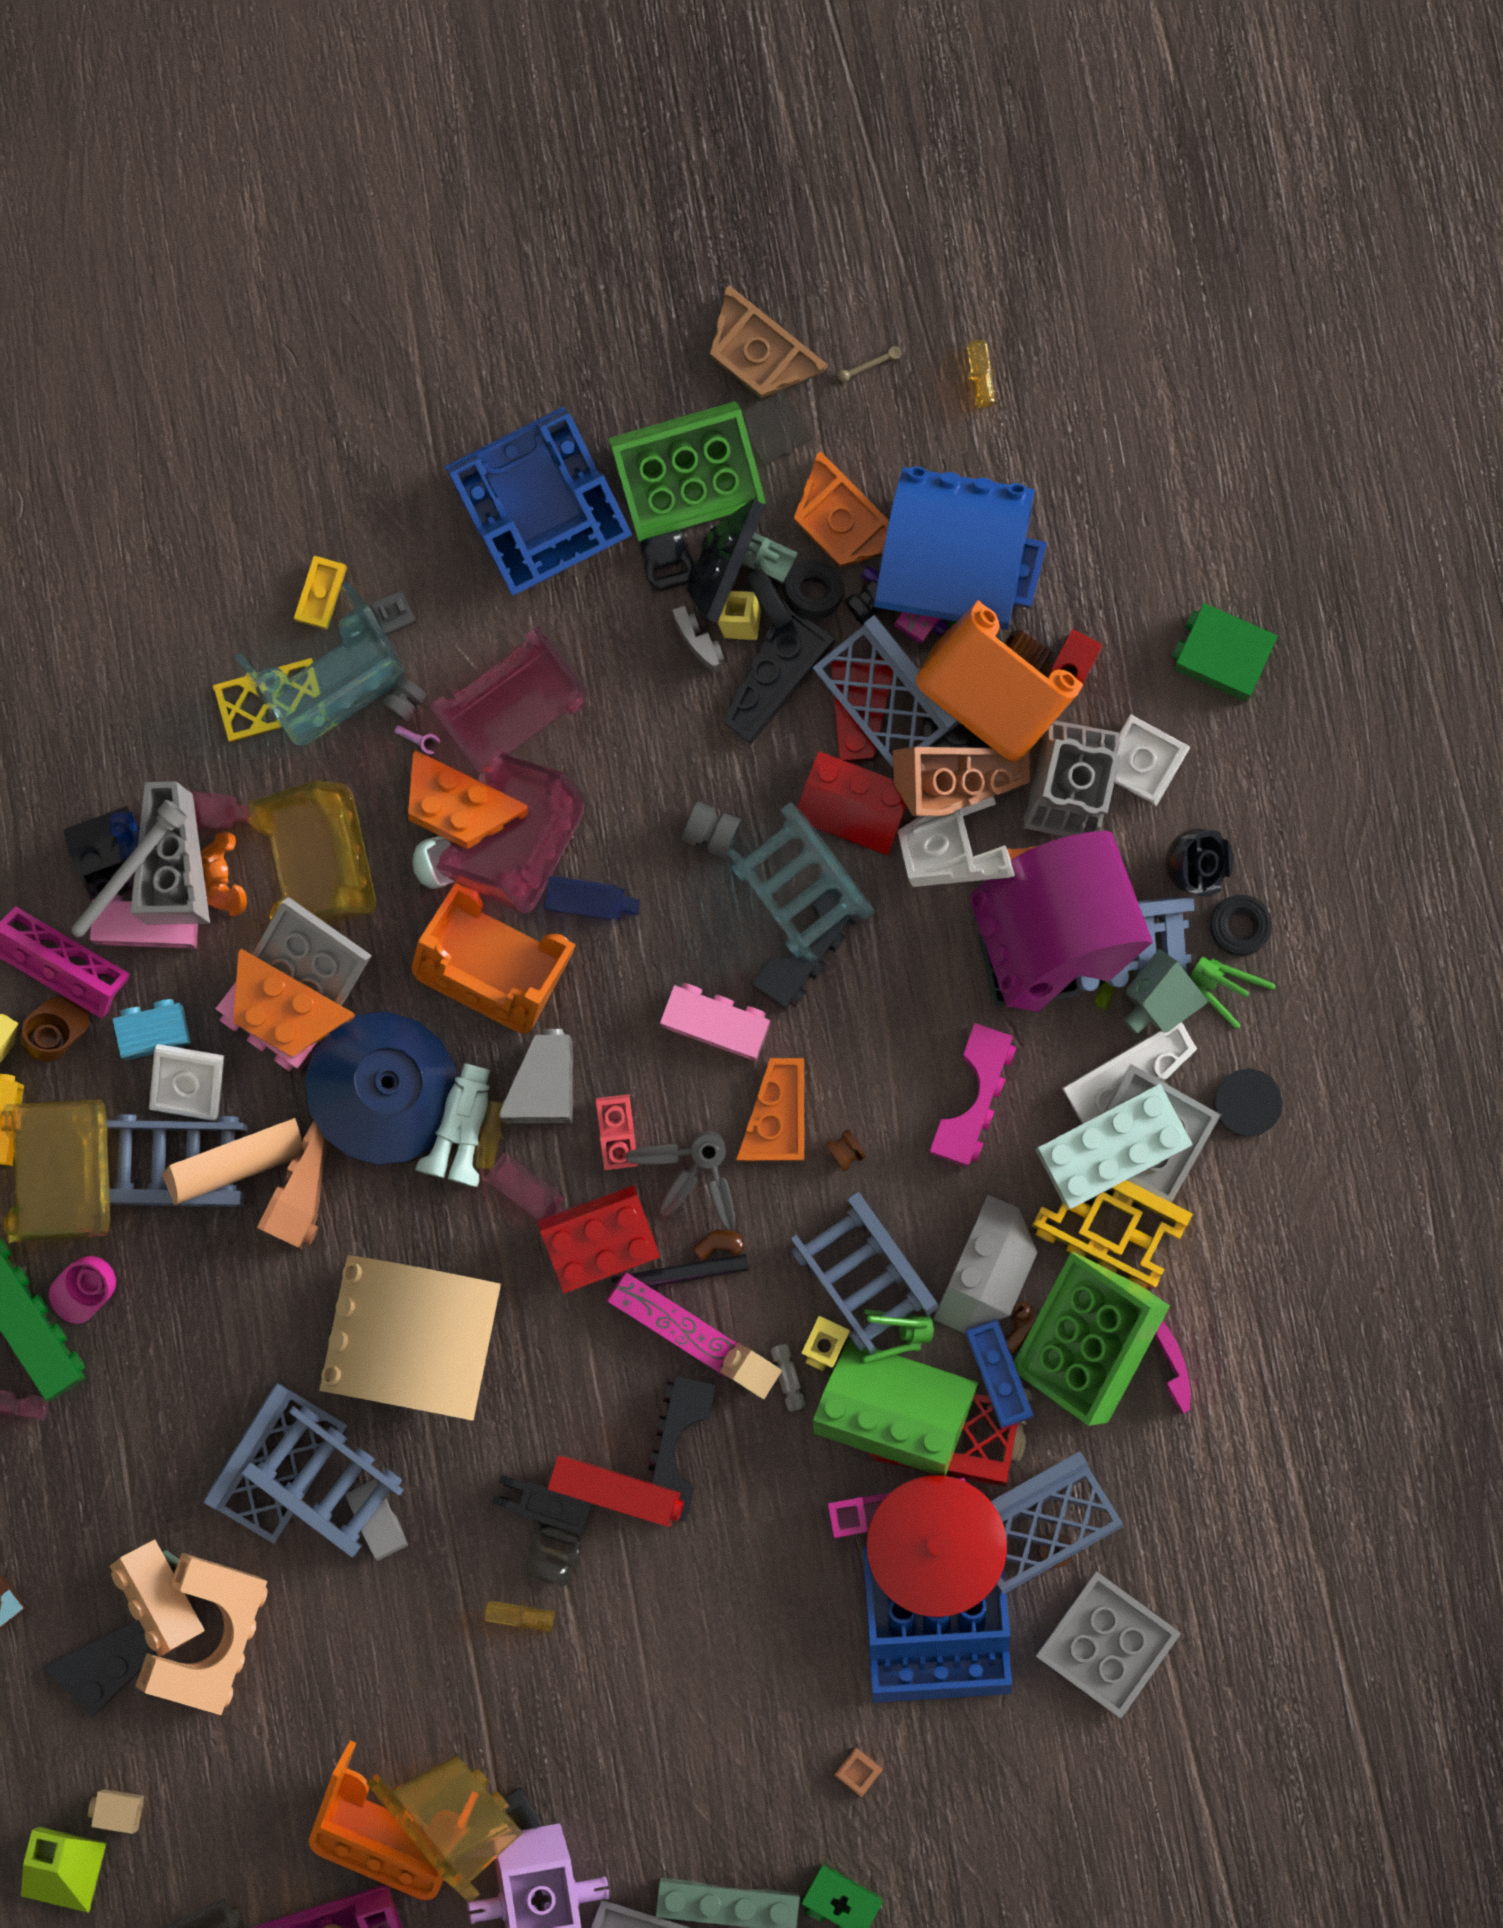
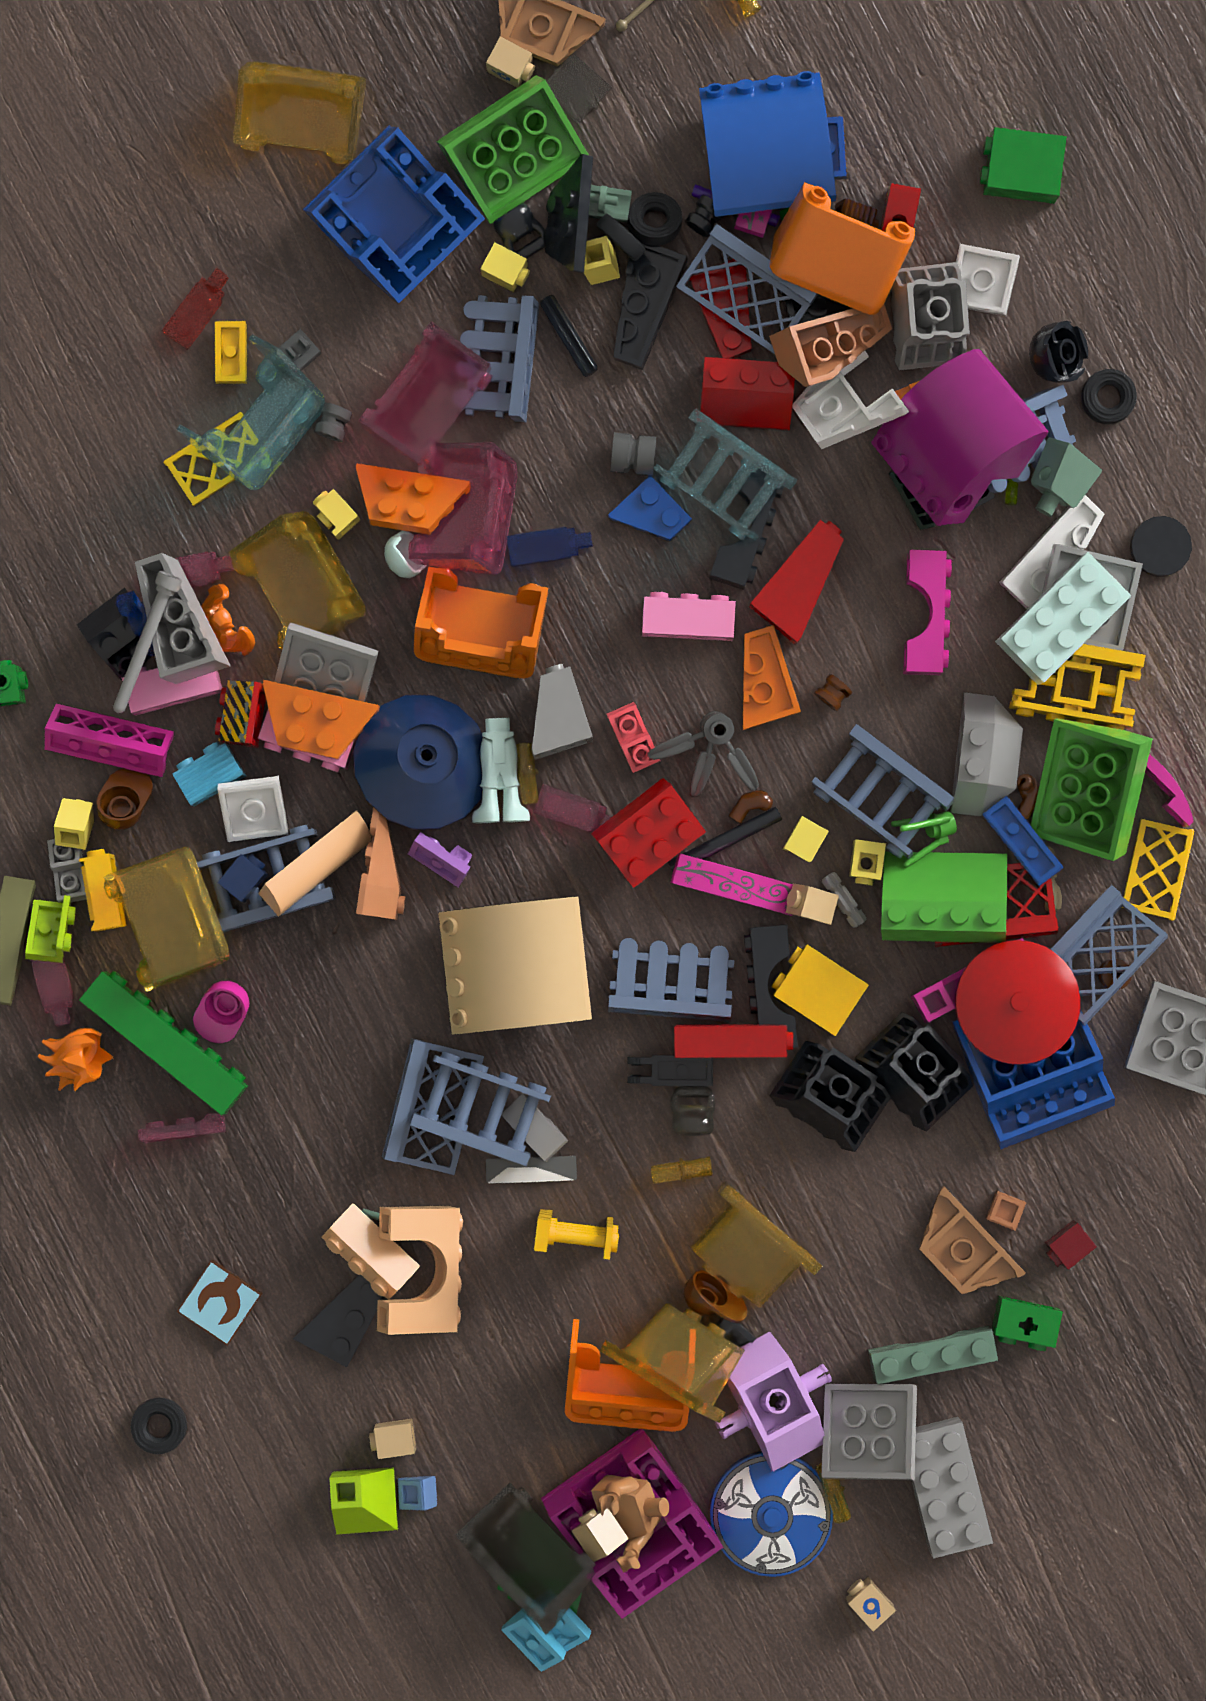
camera: 20 degrees left, 5 degrees up
(123, 1879) = (417, 1493): none -> medium blue slope
(151, 1152) = (243, 877): none -> dark blue brick
(207, 977) = (241, 713): none -> slope
(299, 537) = (196, 309): none -> clear red hinge
(354, 1633) = (552, 1231): none -> yellow fence
(362, 1566) = (537, 1170): none -> sticker
(376, 796) = (335, 513): none -> light yellow brick
(376, 1208) = (450, 866): none -> medium lavender hinge
(417, 739) = (355, 453): lavender hand -> none
(474, 360) = (298, 109): none -> clear yellow windscreen
(508, 1763) = (710, 1296): none -> reddish brown cap
(554, 1410) = (686, 989): none -> sand blue fence
(565, 1726) = (749, 1249): none -> clear yellow windscreen
(629, 677) = (505, 372): none -> sand blue fence
(638, 592) = (505, 267): none -> light yellow brick
(683, 684) = (568, 335): none -> black axle
(702, 647) = (574, 298): light grey slope -> none
(707, 1585) = (831, 1094): none -> black slope
(712, 380) = (510, 63): none -> tan brick
(713, 896) = (651, 511): none -> blue wing
(729, 1465) = (819, 989): none -> yellow panel
(766, 1299) = (805, 839): none -> light yellow panel
(799, 1798) = (964, 1248): none -> medium nougat wing
(807, 1587) = (916, 1070): none -> black slope
(840, 516) = (658, 148): orange wing -> none
(844, 1022) = (796, 586): none -> red slope
(914, 1832) = (1069, 1245): none -> dark red brick
(1168, 1448) = (1181, 859): none -> yellow window
(1210, 973) = (1096, 445): bright green plant -> none

